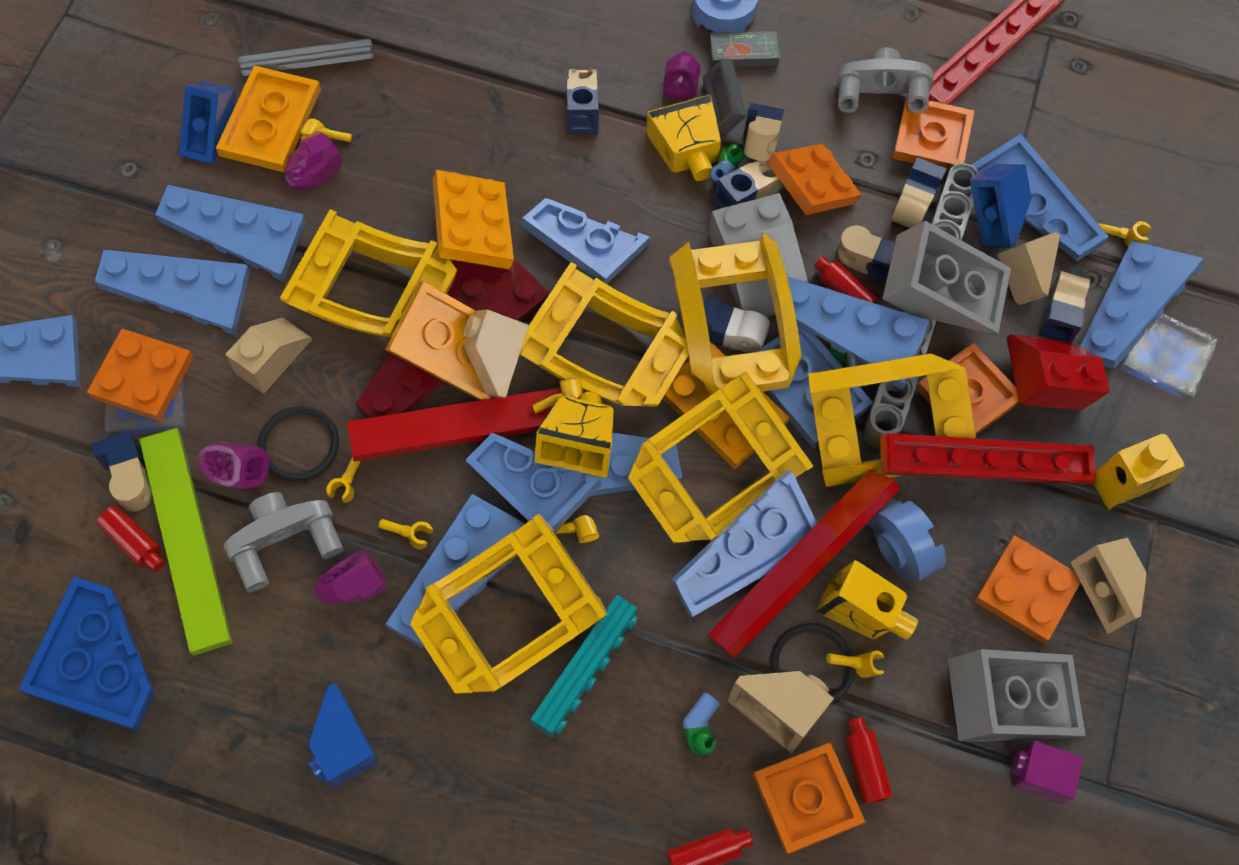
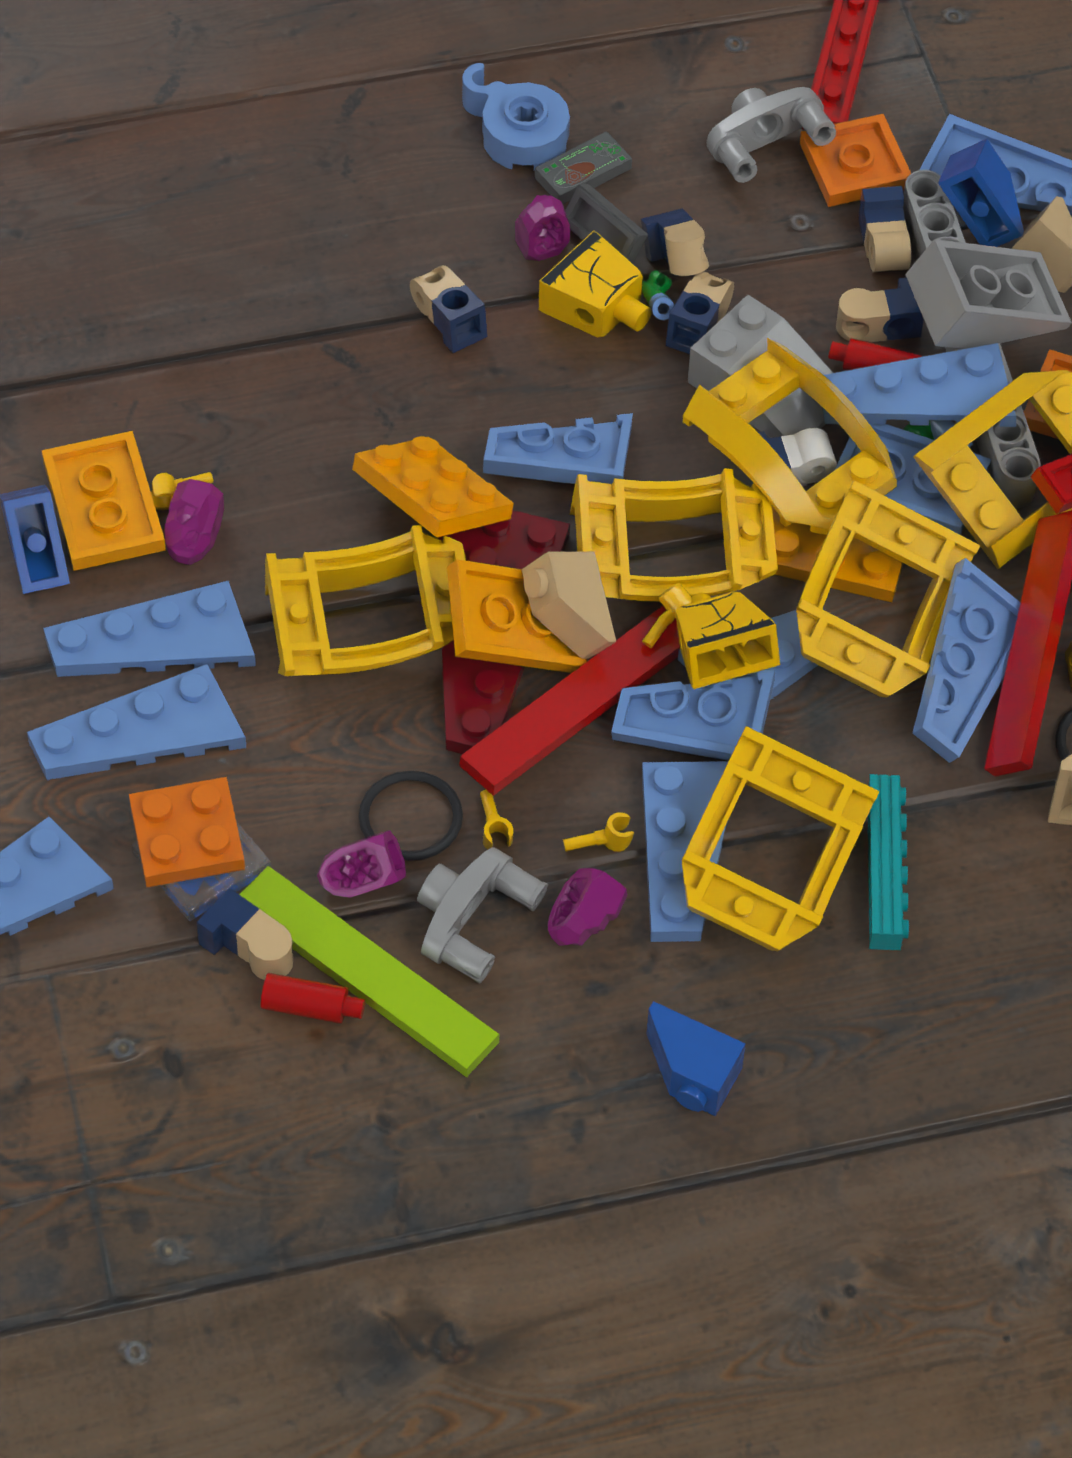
camera: 30 degrees left, 10 degrees down
(91, 659) = (367, 1133): blue plate -> none
(266, 352) = (306, 744): tan slope -> none
(308, 56) = (88, 414): dark grey axle -> none
(584, 528) = (787, 733): yellow hand -> none
(697, 728) = (1034, 855): arm -> none
(814, 178) = (766, 265): orange plate -> none

